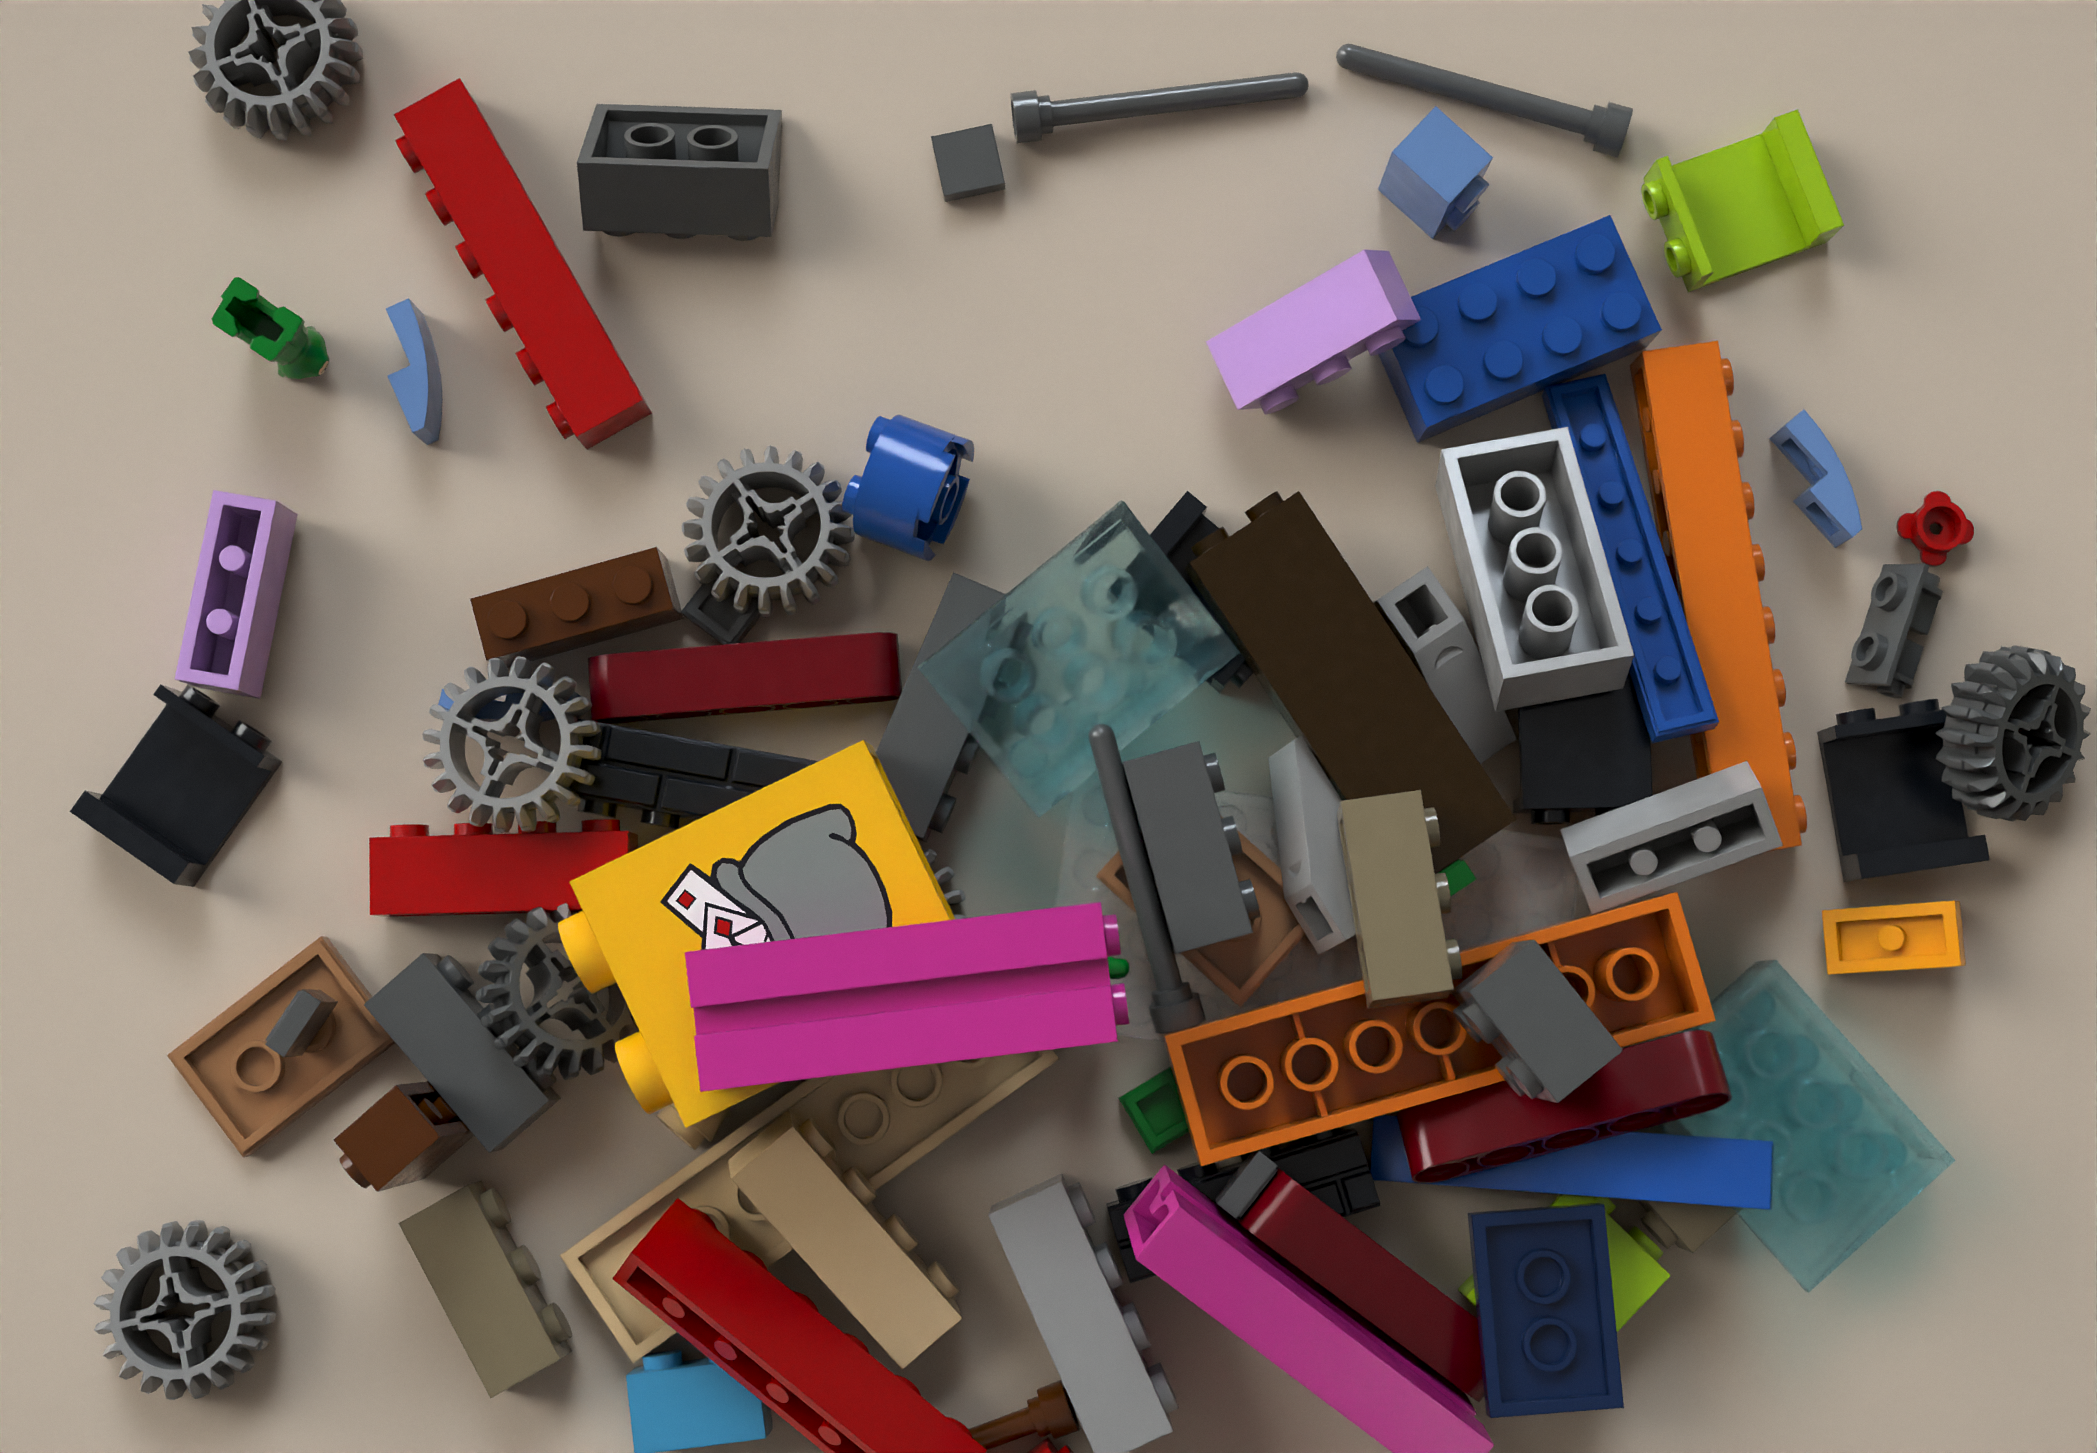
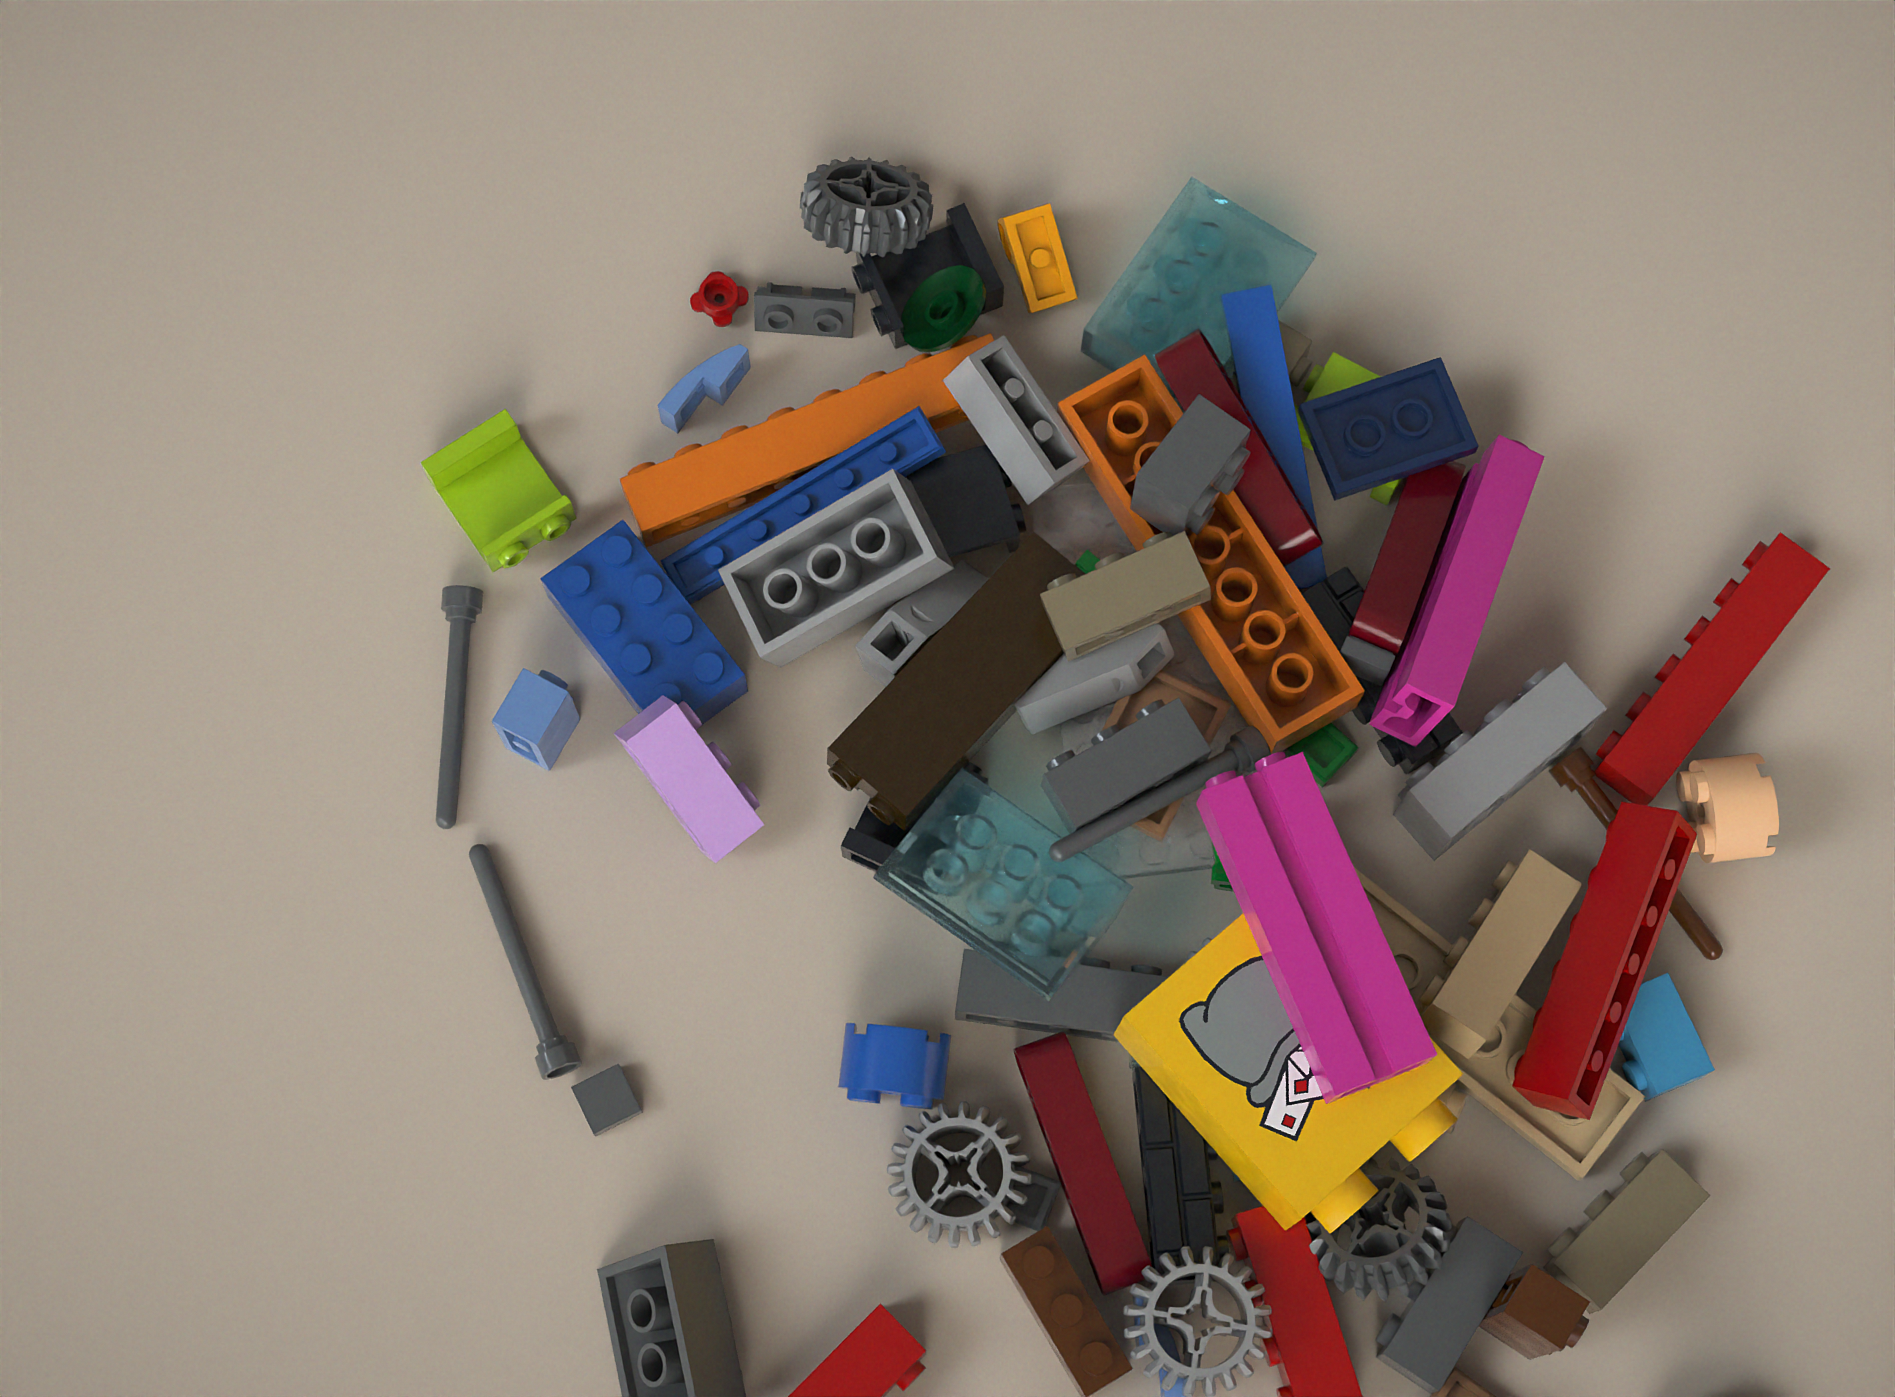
camera: 110 degrees left, 10 degrees down
(1850, 796) = (943, 308): none -> dark green dish

